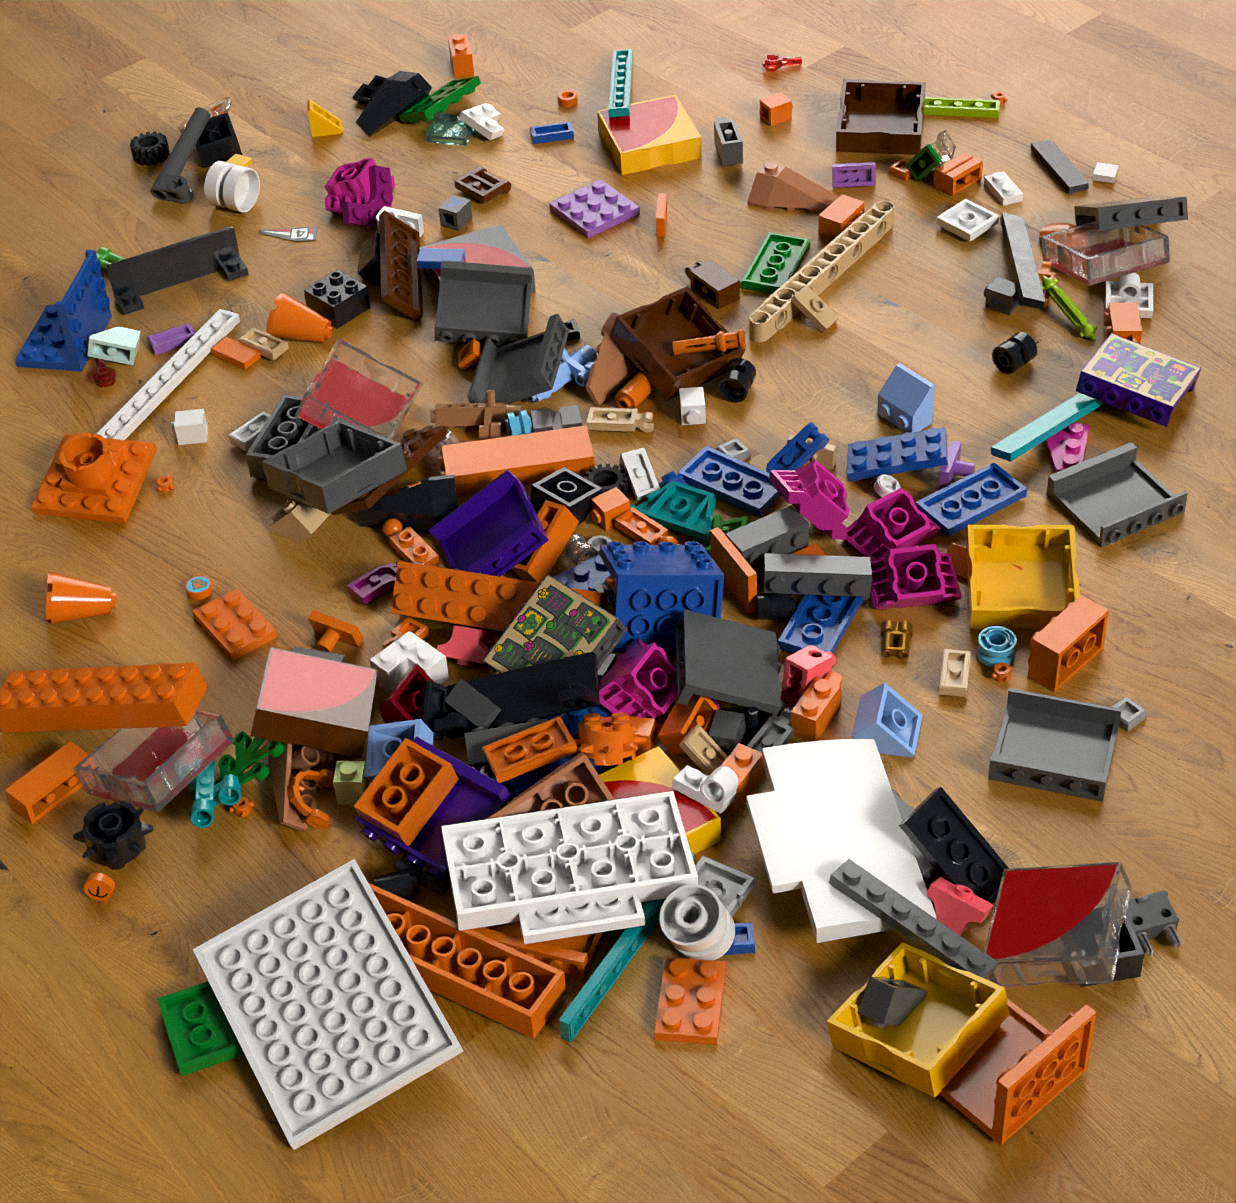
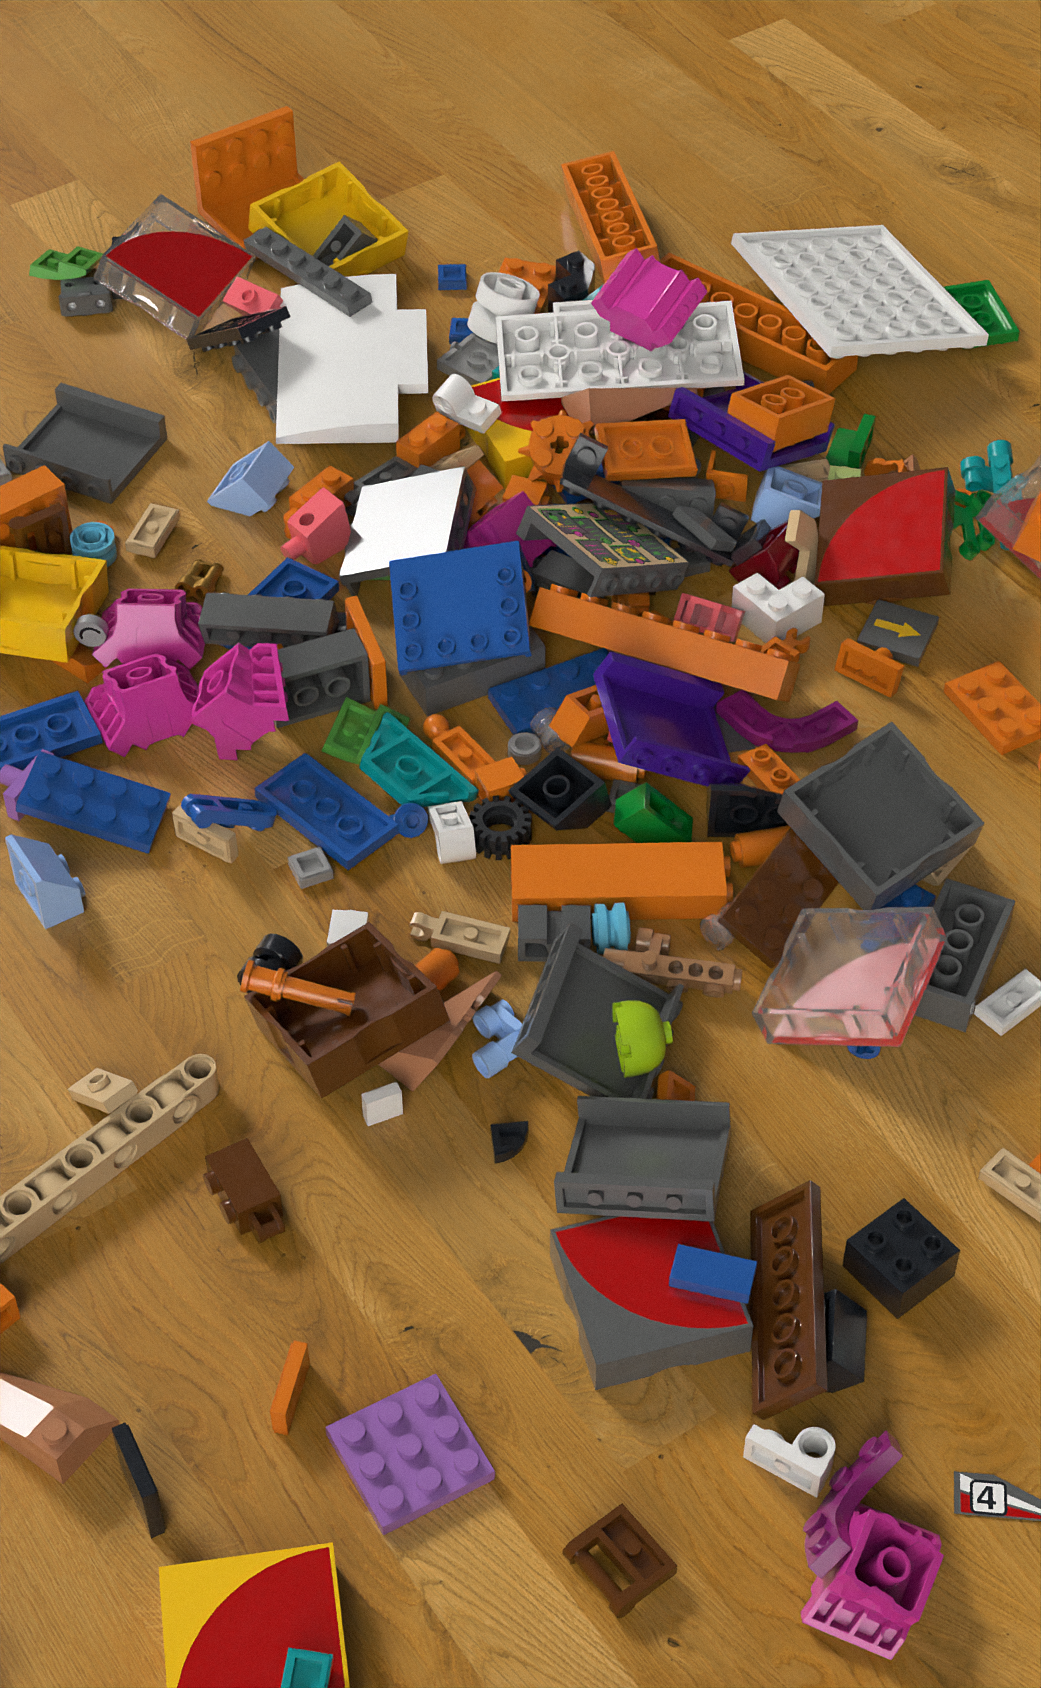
camera: 175 degrees left, 5 degrees up
(297, 321) = (966, 1200): orange cone -> none
(339, 842) = (851, 446): none -> green panel
(385, 687) = (803, 535): none -> tan tile
(455, 212) = (679, 1468): dark grey brick -> none
(491, 347) = (639, 1037): none -> lime cylinder
(535, 862) = (647, 300): none -> dark pink slope
(602, 1053) = (607, 211): none -> orange brick
(632, 980) = (572, 279): none -> black brick
(723, 164) = (139, 1479): none -> black tile
(728, 141) = (104, 1575): dark grey brick -> none
(770, 1011) = (452, 277): none -> blue tile
(775, 262) = (122, 1242): green tile -> none
(885, 485) = (127, 768): white tile -> none
(954, 551) = (91, 630): none -> light grey tile
(1034, 621) = (49, 529): none -> reddish brown plate
(1186, 948) = (62, 266): none -> bright green slope

